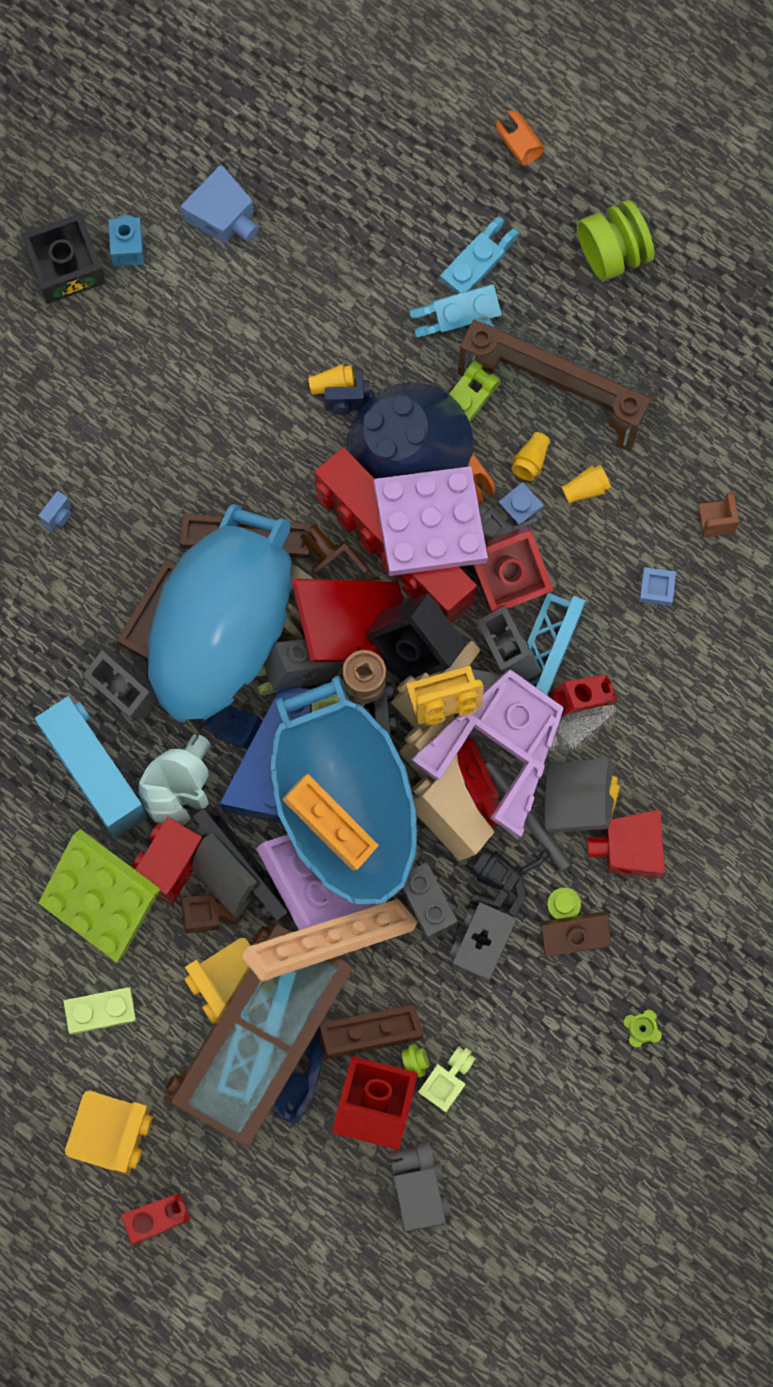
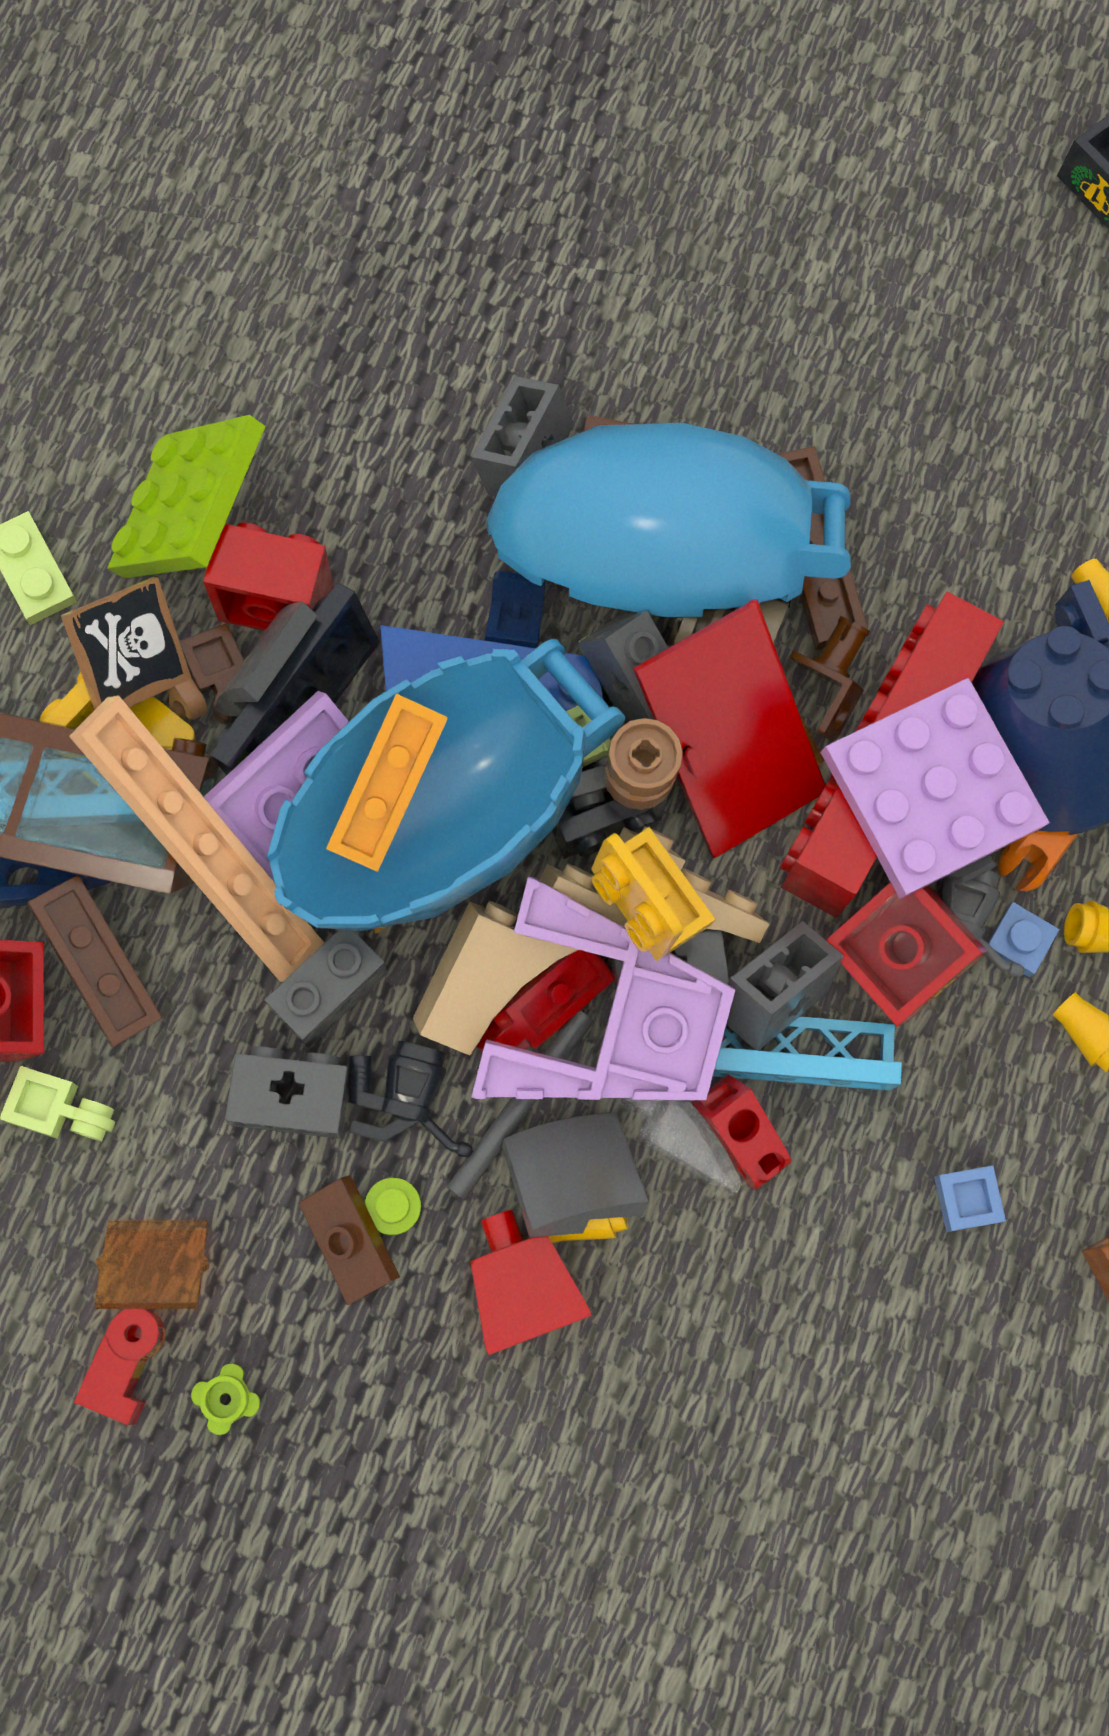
camera: 65 degrees right, 0 degrees up
(55, 512) = (751, 275): medium blue plate -> none
(91, 766) = (378, 430): medium azure brick -> none
(175, 781) = (397, 555): light aqua piece -> none
(193, 953) = (132, 650): none -> flag
(415, 1060) = (71, 1047): lime plate -> none
(416, 638) = (738, 832): black brick -> none
(556, 1047) = (152, 1264): none -> clear orange piece
(605, 1080) = (118, 1363): none -> leg

